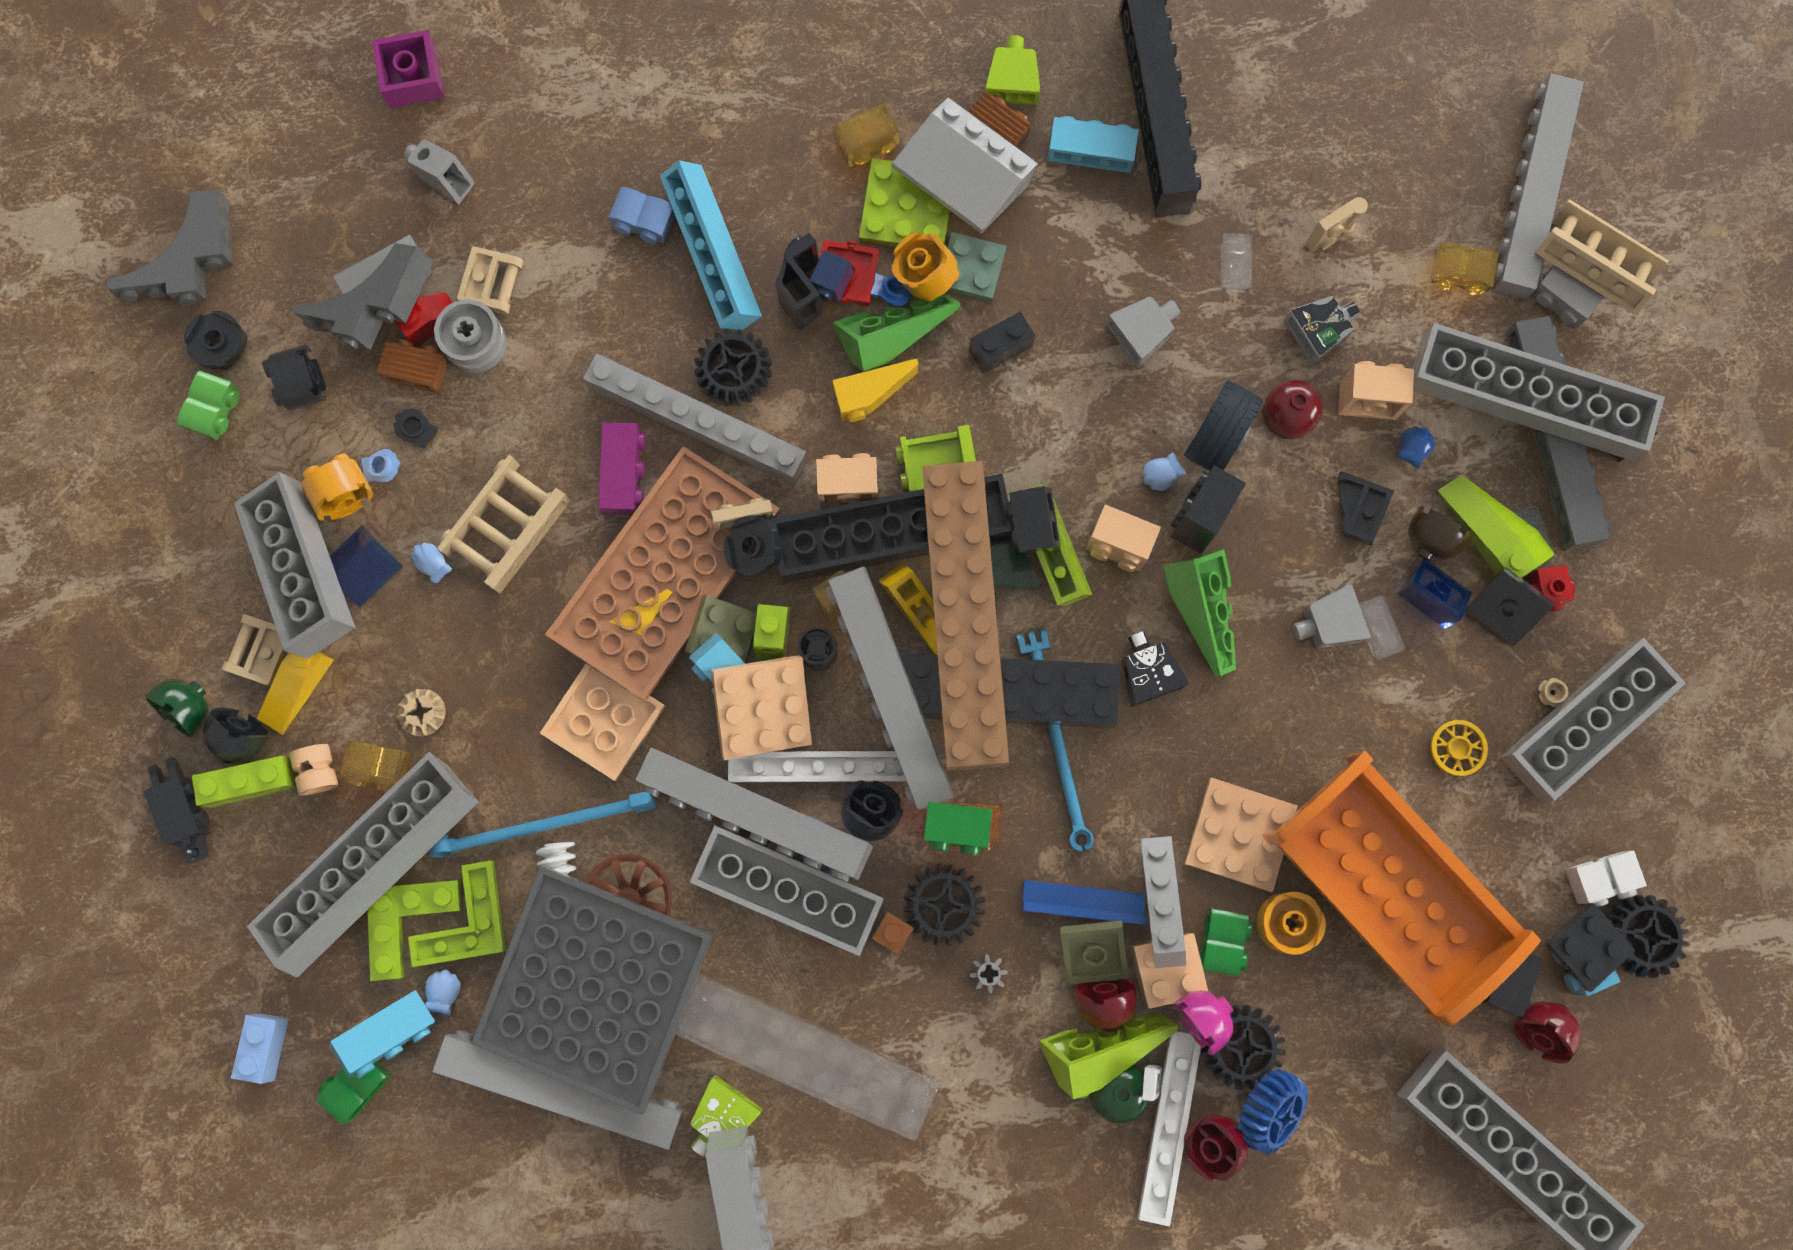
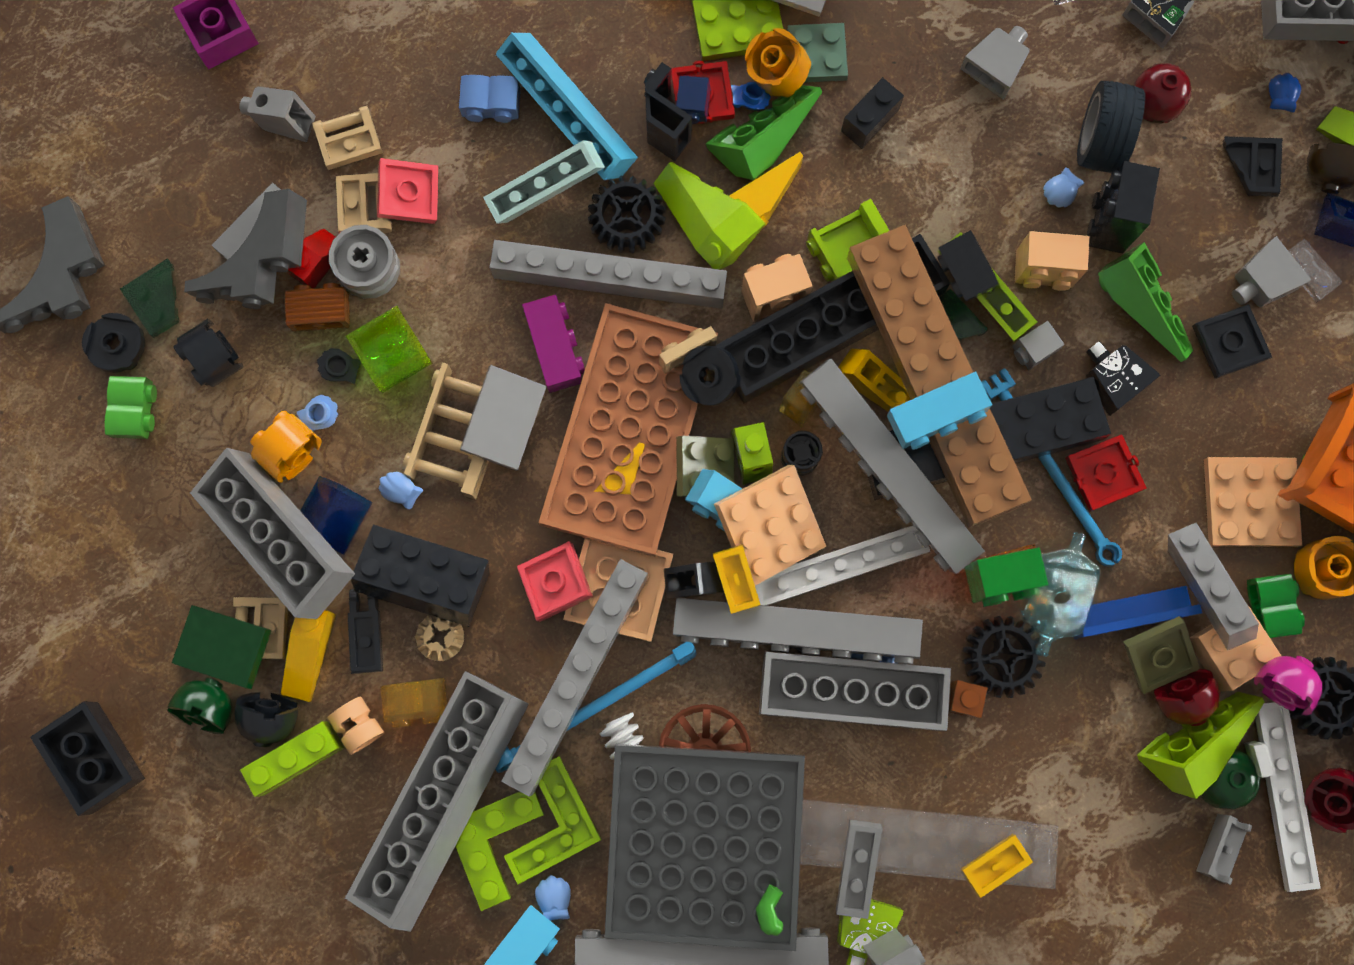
camera: 20 degrees left, 0 degrees up
(59, 719) = (87, 758): none -> black brick
(176, 812) = (235, 809): black hinge -> none
(216, 656) = (221, 647): none -> dark green tile
(266, 309) = (154, 298): none -> clear green wing
(352, 686) = (364, 636): none -> black hinge
(420, 649) = (420, 575): none -> black brick
(464, 426) = (388, 349): none -> clear neon green brick
(496, 220) = (348, 145): none -> tan plate
(528, 792) = (575, 678): none -> light grey brick
(534, 281) = (407, 191): none -> coral plate
(544, 695) = (554, 581): none -> coral tile
(546, 525) = (503, 418): none -> light grey tile
(624, 1077) = (766, 913): none -> bright green arm
(661, 313) = (544, 182): none -> light aqua brick
(681, 737) = (679, 582): none -> black torso
(708, 747) = (736, 579): none -> yellow plate
(727, 1058) = (858, 869): none -> light grey plate
(809, 399) = (711, 220): none -> lime wedge
(858, 1098) = (996, 865): none -> yellow plate
(871, 810) = (906, 590): black cylinder -> none
(947, 650) = (939, 411): none -> medium azure brick
(995, 979) = (1074, 712): light grey gear -> none
(1026, 842) = (1070, 573): none -> clear light blue plate
(1082, 617) = (1037, 345): none -> light grey brick
(1091, 1158) = (1222, 848): none -> light grey hinge
(1106, 760) = (1106, 473): none -> red plate
(1275, 673) = (1232, 341): none -> black plate
(1376, 391) = (1235, 51): light nougat brick -> none

